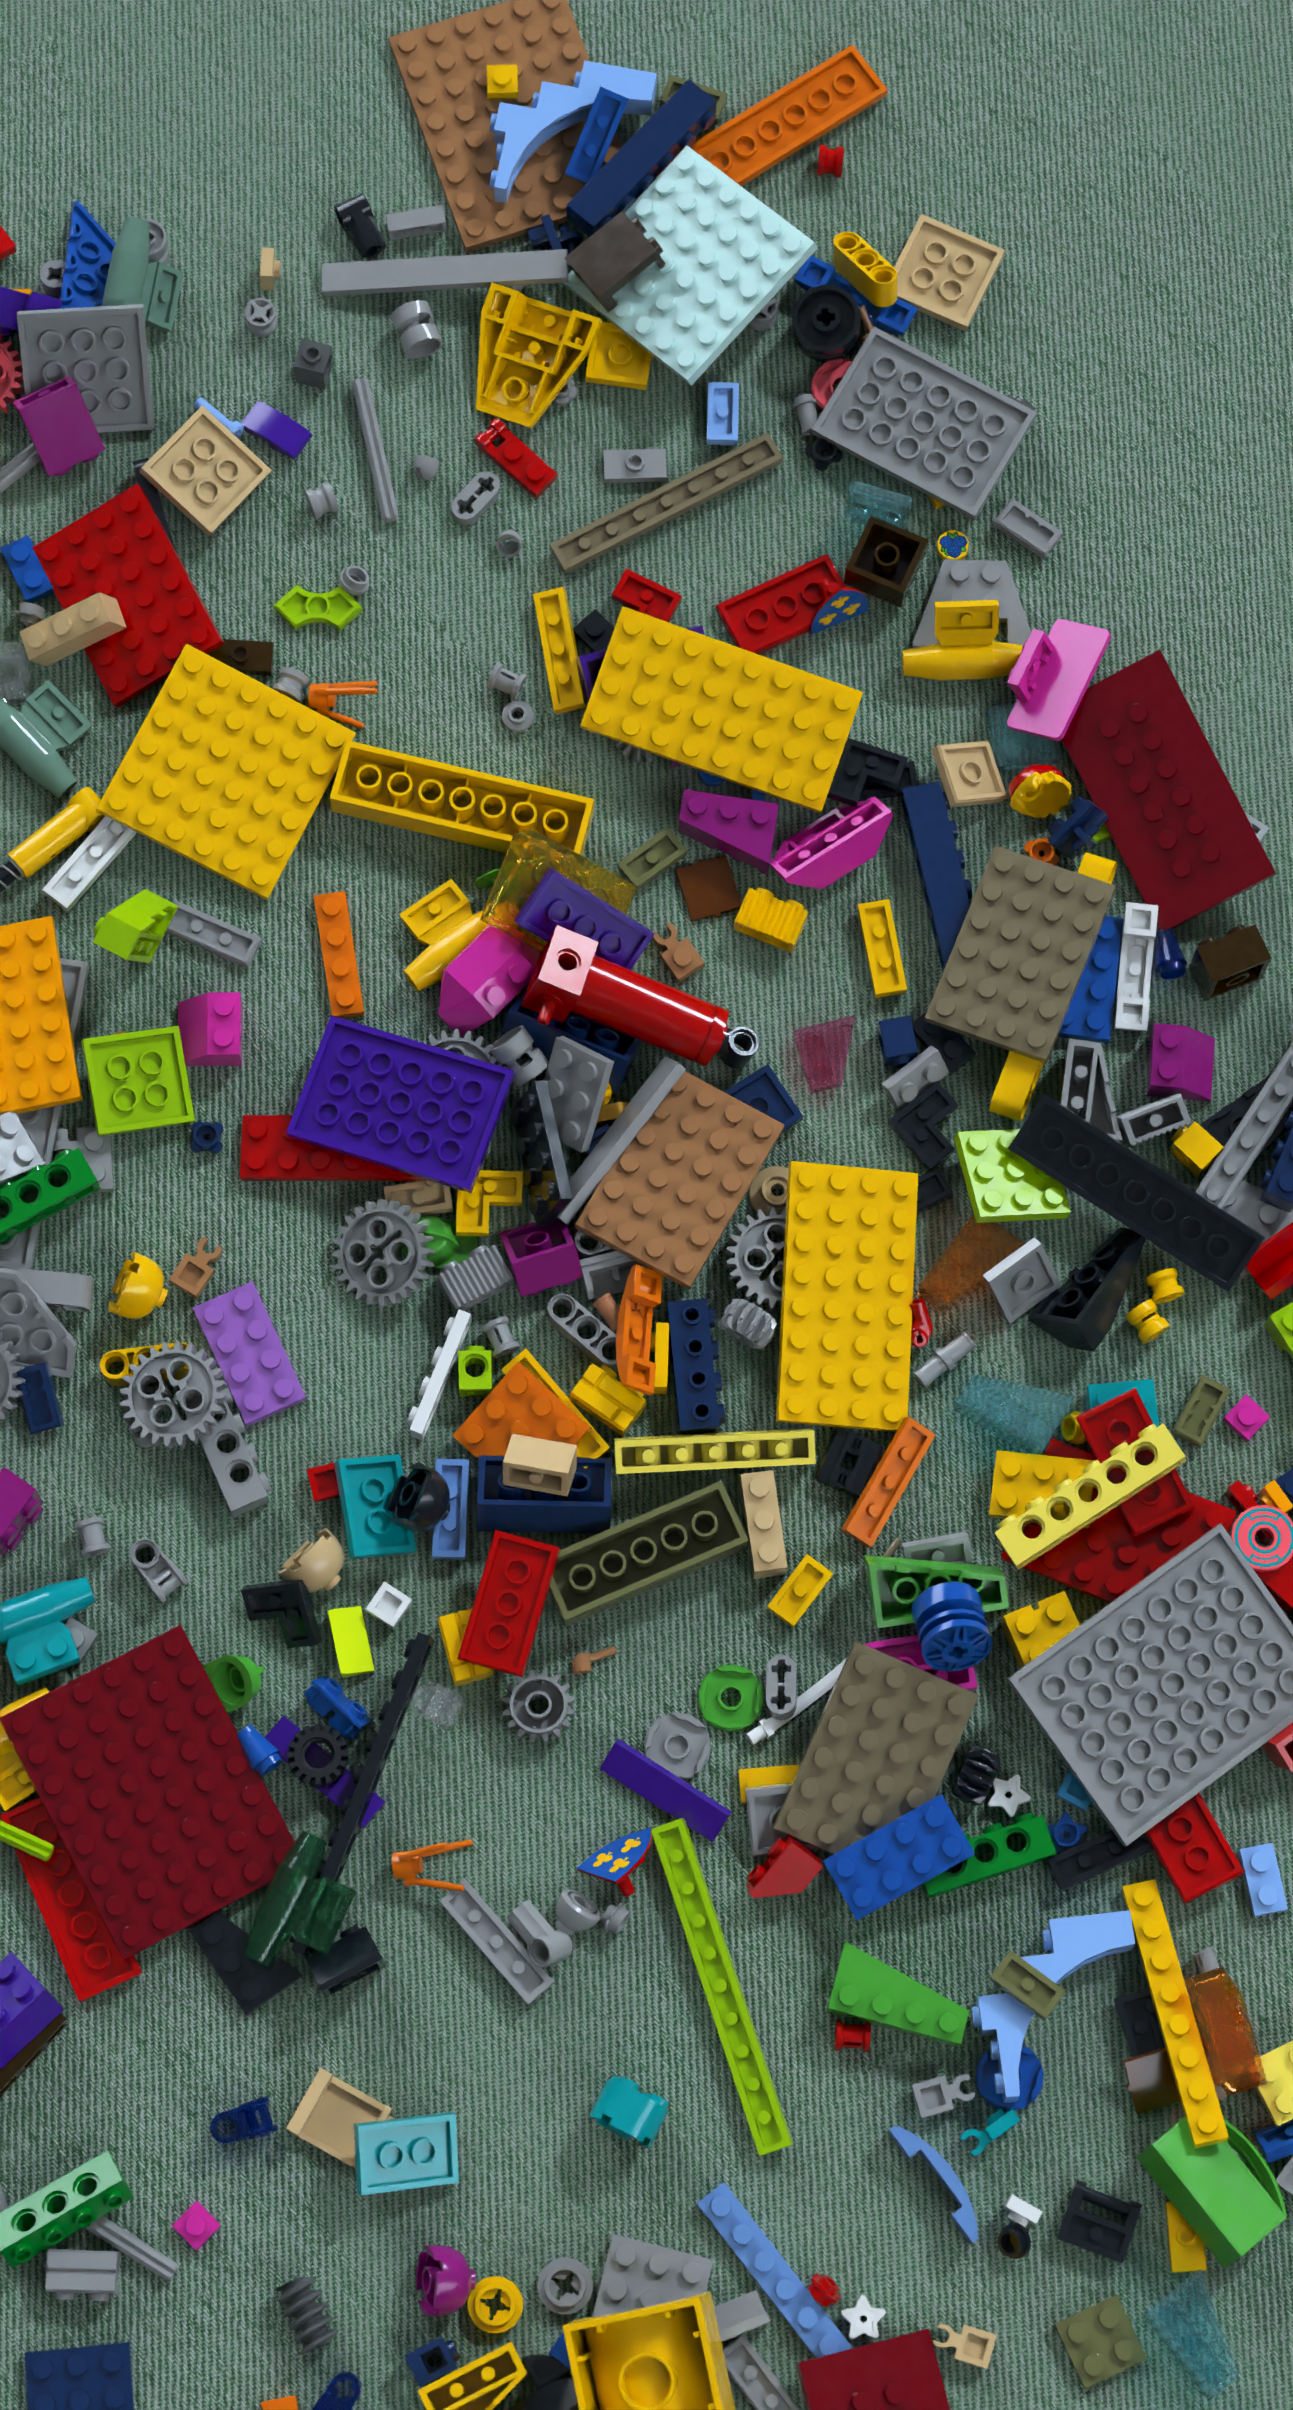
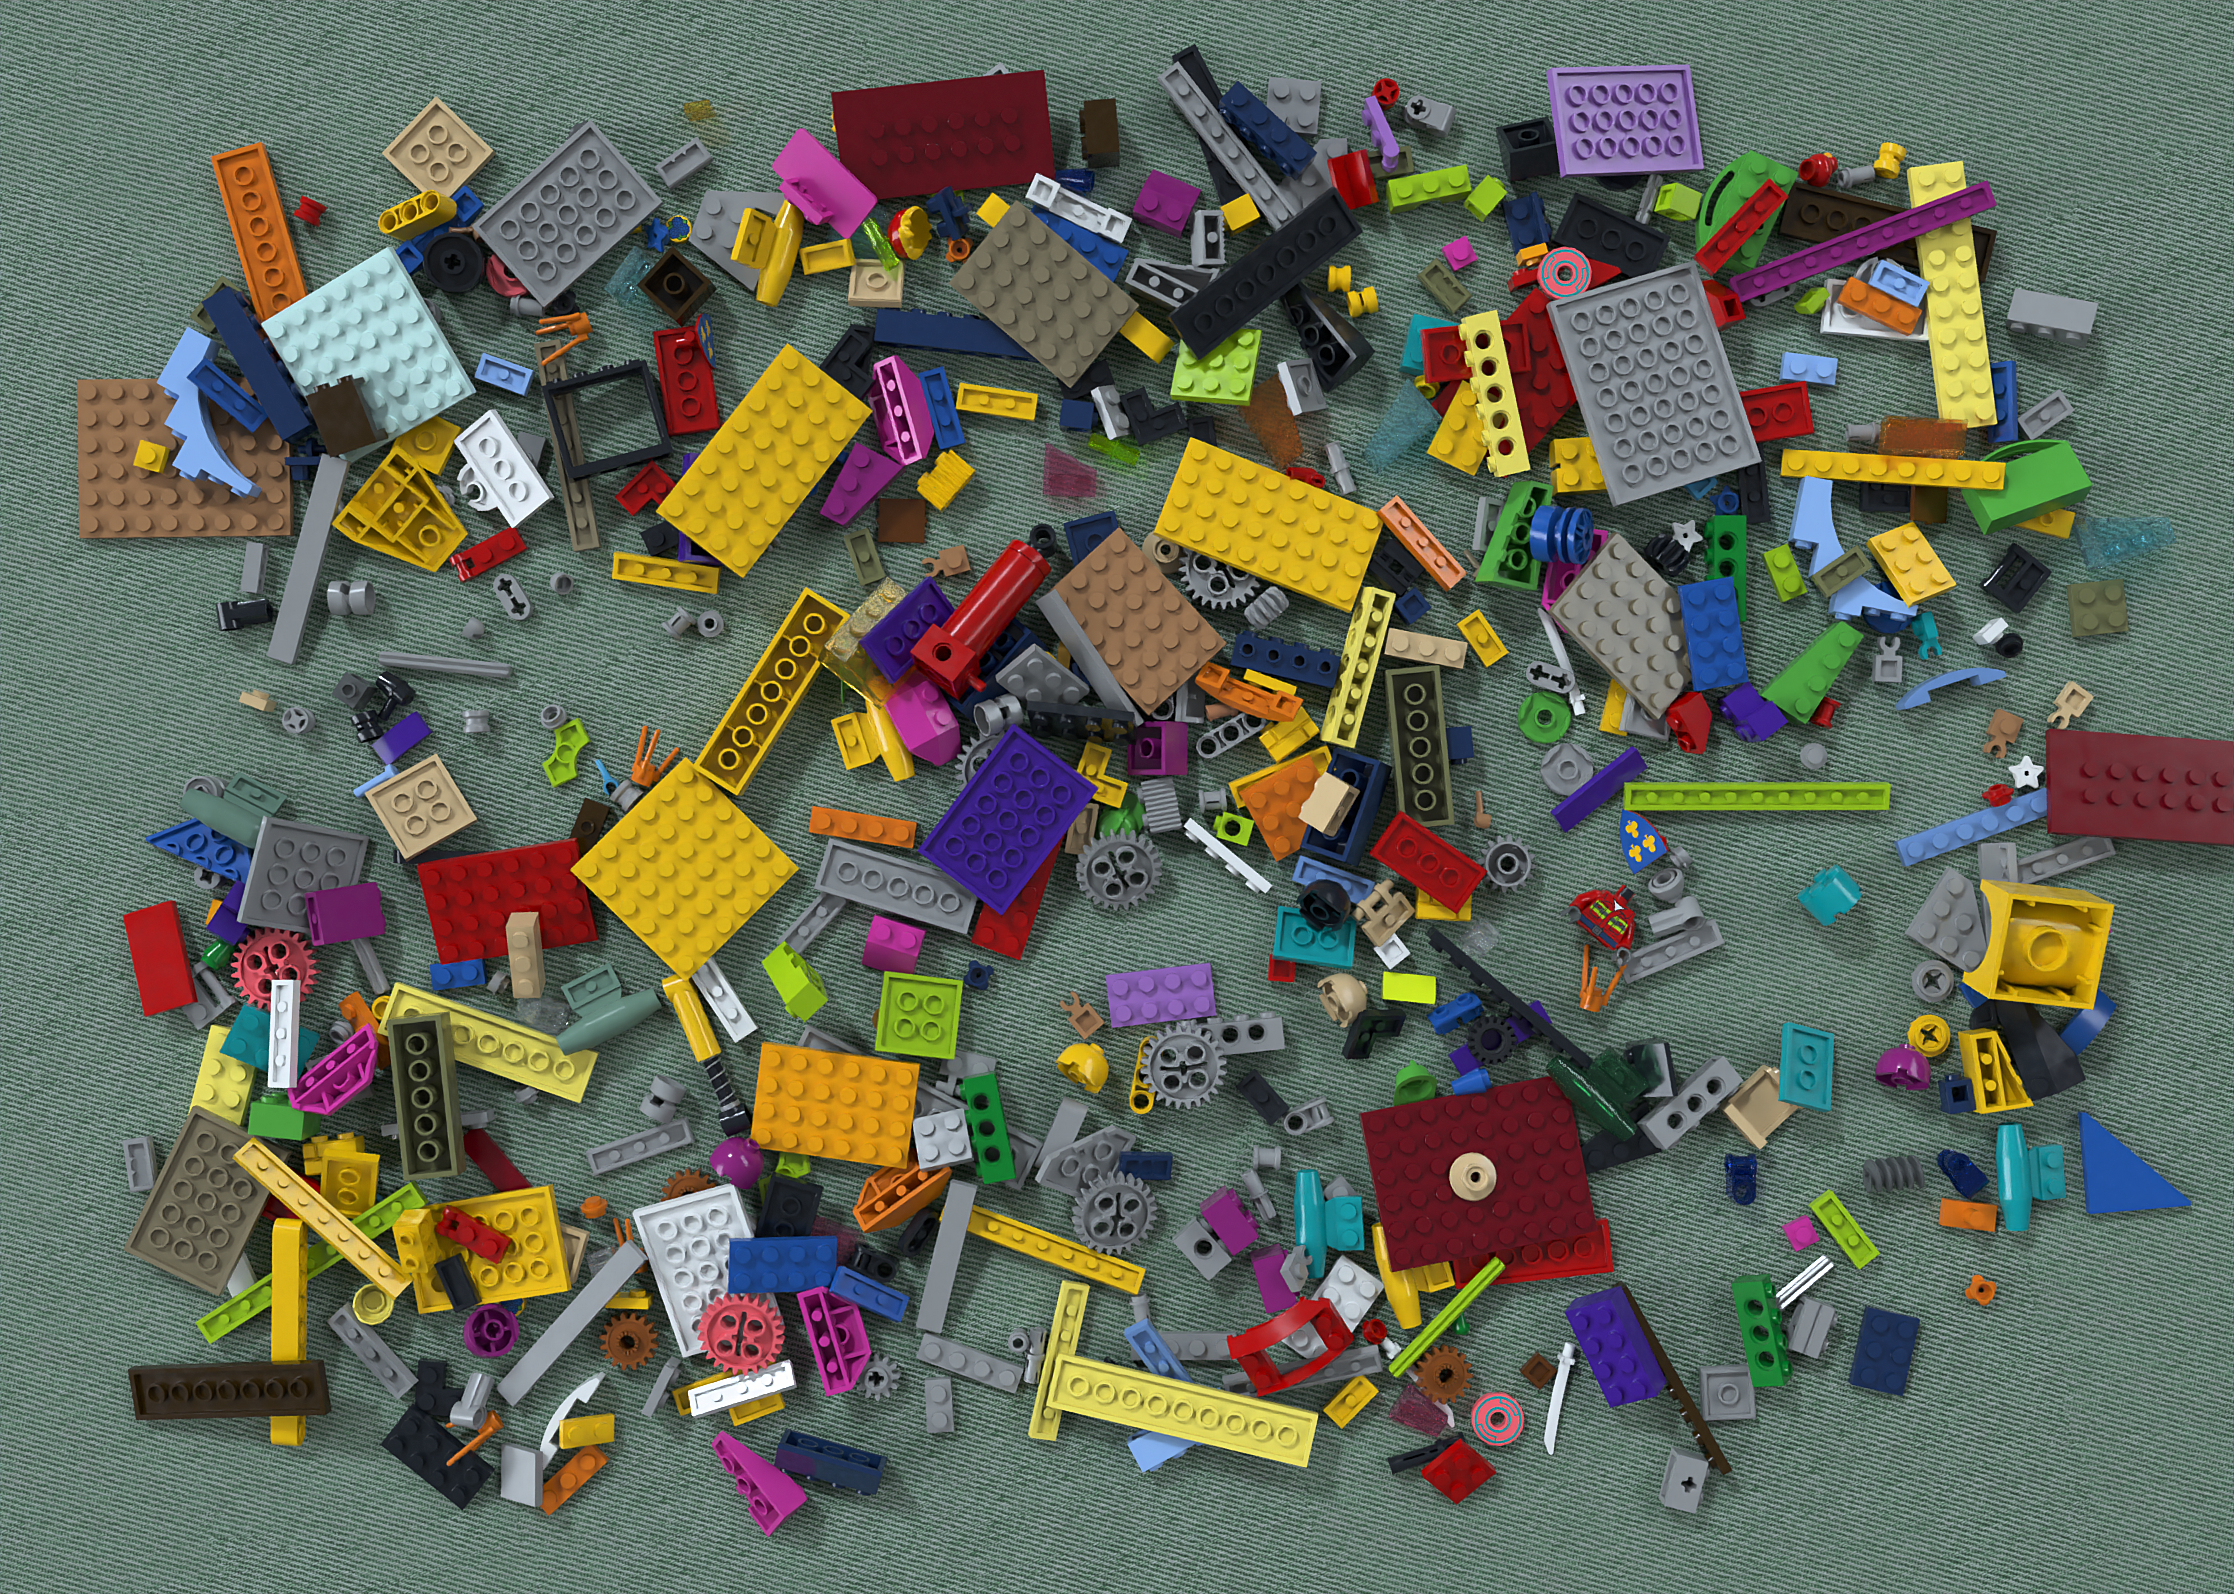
camera: 70 degrees left, 15 degrees up
(44, 1543) = (1258, 1194): none -> light grey axle
(142, 1798) = (1461, 1176): none -> tan piece
(163, 1508) = (1262, 1097): none -> black plate
(218, 2277) = (1844, 1229): none -> lime plate
(278, 388) = (367, 726): none -> black wheel
(280, 1009) = (895, 886): none -> light grey plate
(305, 658) = (606, 776): none -> dark azure hand
(327, 409) = (396, 690): none -> black piece
(366, 2045) = (1656, 1123): none -> light grey brick
(426, 1585) = (1387, 918): none -> tan plate
(510, 1847) = (1606, 919): none -> torso
(612, 439) = (500, 471): none -> white plate
(663, 1602) = (1459, 744): none -> dark blue brick
(665, 559) = (606, 375): none -> black window
(794, 2042) = (1813, 756): none -> light grey plate
(805, 470) = (576, 323): none -> orange plant
(808, 1490) = (1411, 606): none -> dark blue brick
(820, 1939) = (1750, 714): none -> dark purple brick
(852, 889) = (942, 408): none -> blue plate
(874, 1095) = (1114, 449): none -> clear neon green axle
(909, 2272) = (2003, 729): none -> medium nougat plate
(937, 526) = (657, 235): none -> blue plate
(979, 711) = (827, 256): none -> yellow tile
(1005, 1932) = (1783, 573): none -> lime plate
(1014, 761) = (880, 244): none -> clear neon green axle
(1068, 2076) = (1911, 564): none -> yellow plate
(1093, 525) = (699, 110): none -> clear yellow tile

